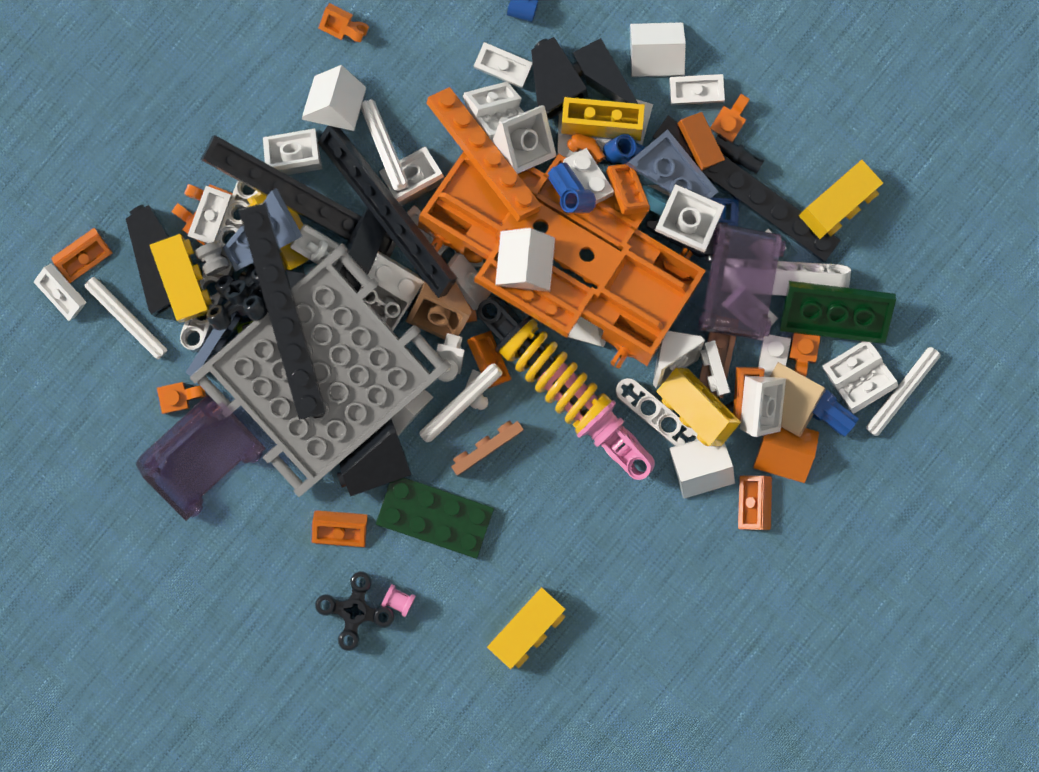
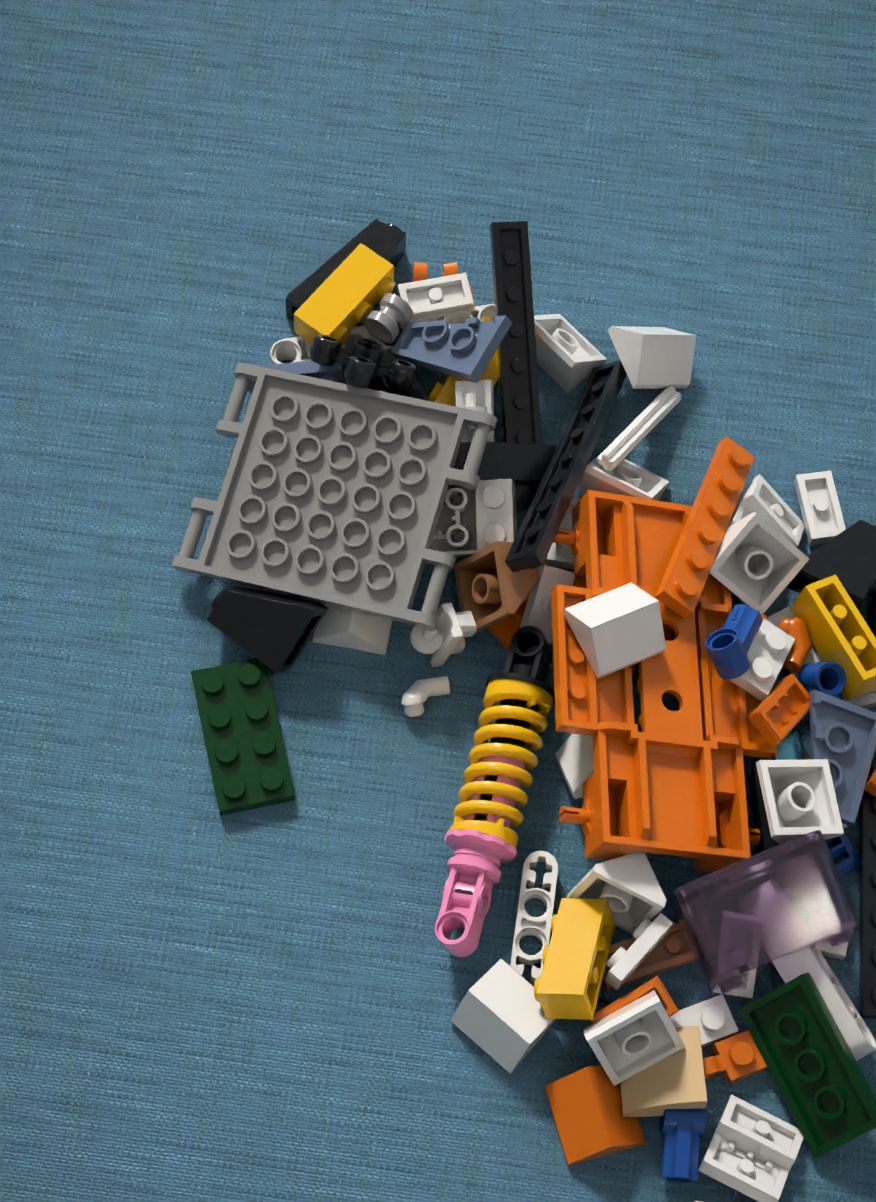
camera: 55 degrees right, 20 degrees down
(60, 292) = (251, 207): white plate -> none
(81, 255) = (306, 211): orange slope -> none
(126, 318) = (265, 287): white axle -> none
(176, 396) = (208, 383): orange plate -> none
(197, 455) = (150, 438): clear purple windscreen -> none
(282, 310) = (375, 402): black plate -> none
(338, 24) = (737, 315): orange plate -> none
(339, 528) = (161, 637): orange slope -> none
(352, 624) = (56, 711): black gear -> none
(398, 600) = (112, 749): bright pink bush -> none
(460, 403) = (398, 679): white axle -> none
(484, 352) = (467, 687): orange plate -> none
(486, 447) = (363, 743): nougat plate -> none
(527, 629) = (165, 920): yellow brick -> none
(755, 502) = (502, 1116): orange slope -> none

